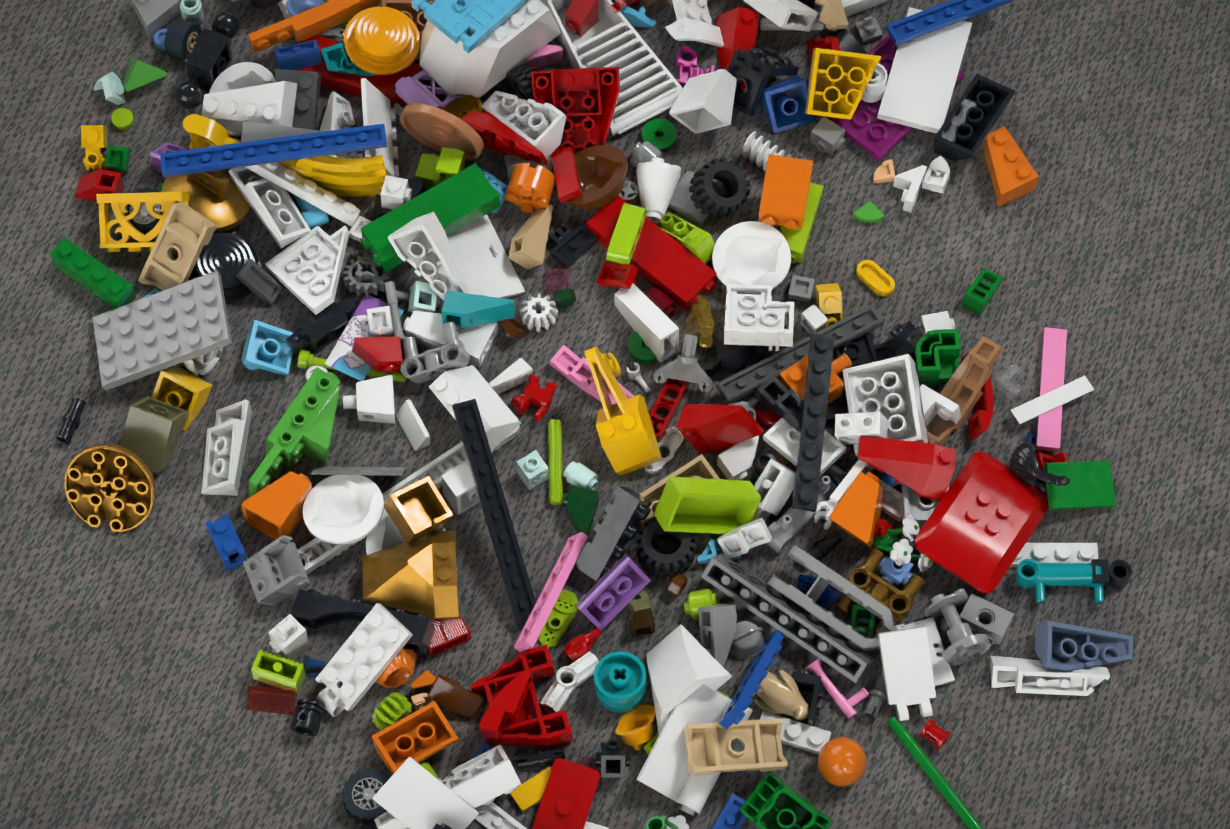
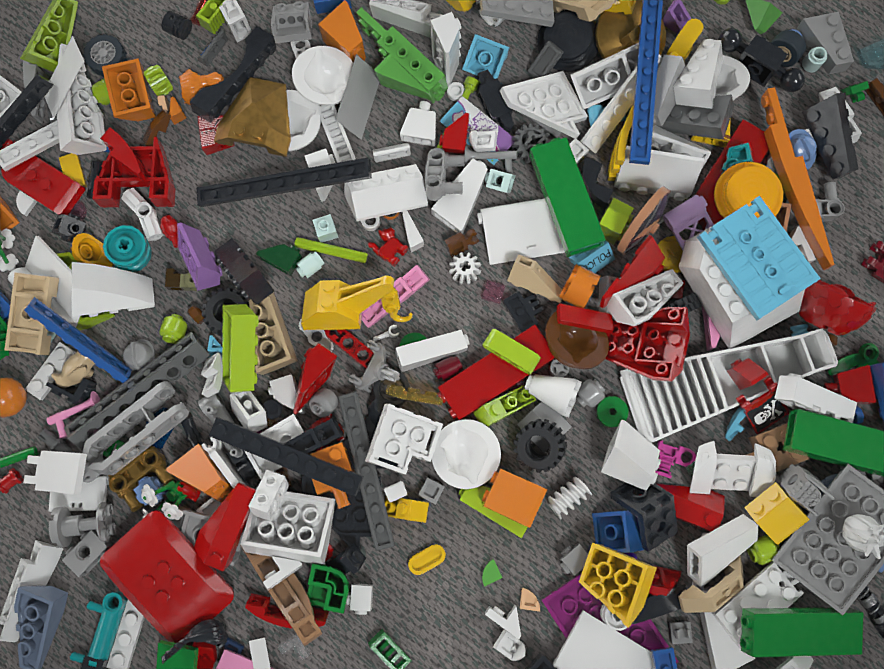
camera: 110 degrees right, 15 degrees up
(280, 373) = (446, 44): none -> white slope
(298, 55) = (750, 128): blue slope -> none
(361, 660) = (196, 62): white hinge -> none
(395, 192) = (595, 173): white brick -> none
(418, 510) = (302, 122): pearl gold piece -> none
(429, 252) = (531, 184): white wedge -> none
(475, 310) = (470, 206): teal slope -> none
(550, 592) = (214, 214): bright pink tile -> none
(563, 615) = (203, 223): lime piece -> none
(564, 298) = (472, 292): dark green tile -> none
(617, 276) = (475, 338): red tile -> none
(717, 629) = (139, 331): light grey slope -> none

